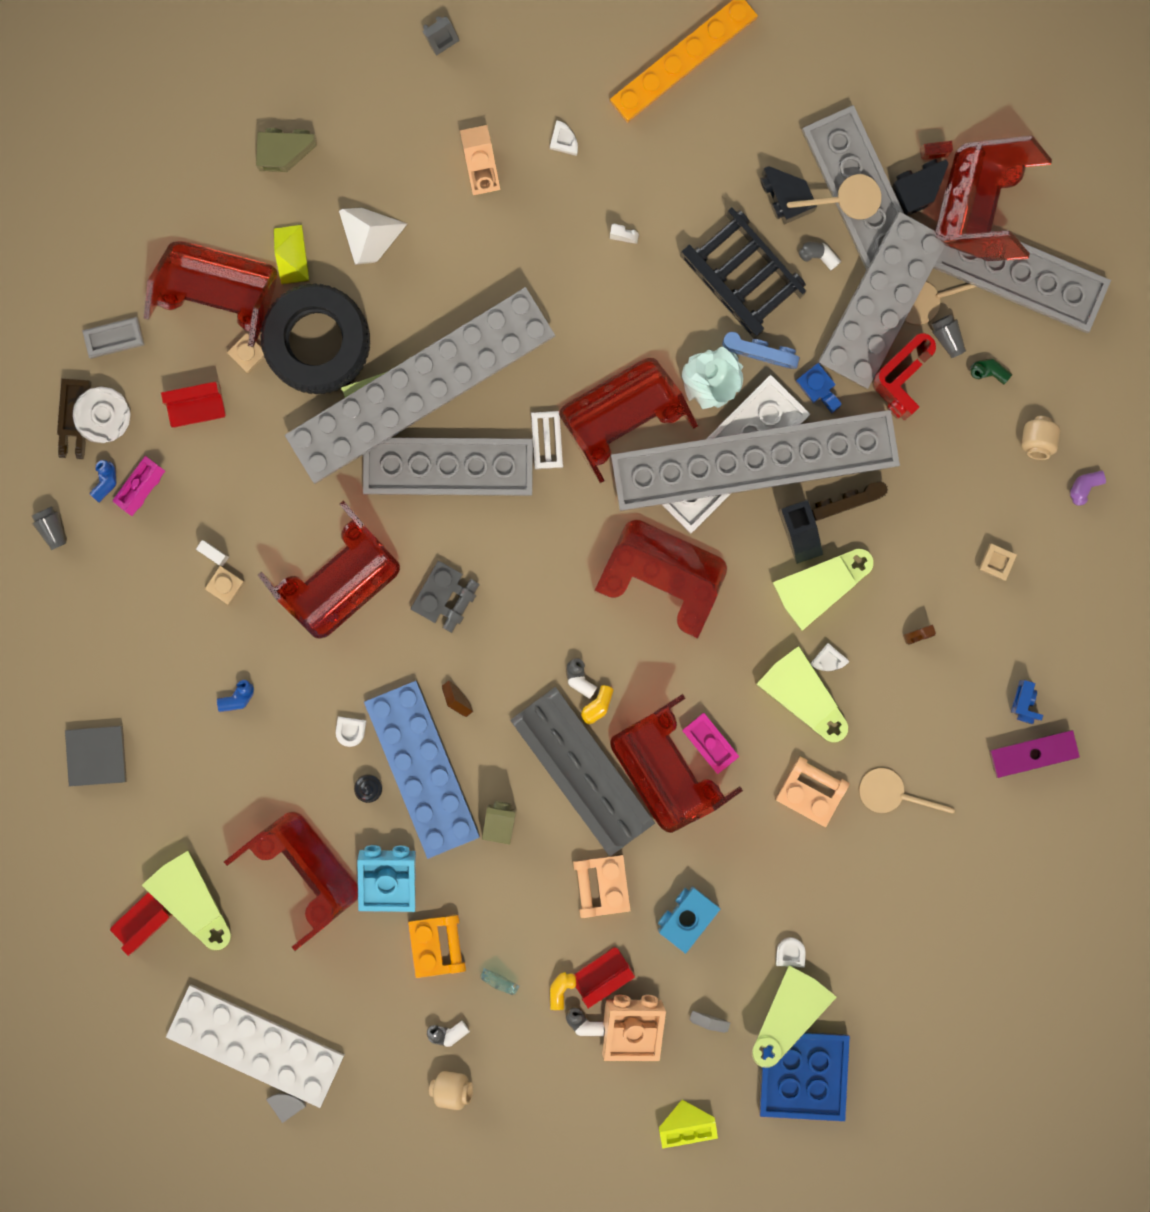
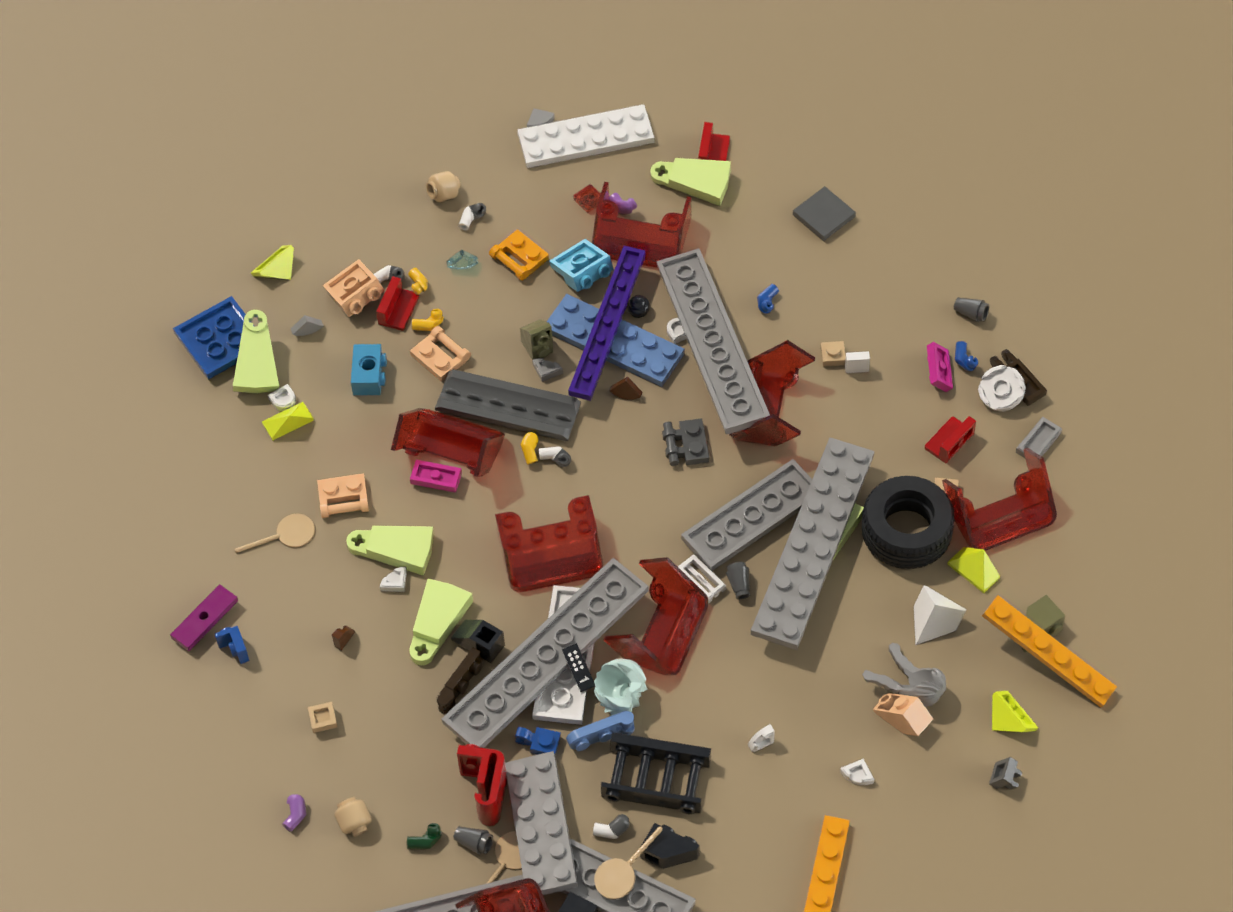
camera: 145 degrees right, 30 degrees down
(289, 922) = (624, 207): none -> medium lavender arm
(303, 110) = (1049, 651): none -> light orange plate
(313, 963) = (587, 198): none -> clear red tile
(334, 681) = (713, 341): none -> light grey plate
(385, 85) = (1009, 715): none -> neon yellow slope
(419, 783) = (606, 323): none -> dark purple plate
(438, 168) = (925, 683): none -> light grey hair
(512, 787) = (546, 369): none -> light grey tile
(515, 407) = (739, 579): none -> dark grey cone
(585, 930) = (430, 323): none -> yellow arm
(737, 423) = (578, 667): none -> black sticker
(803, 924) = (287, 421): none -> neon yellow slope

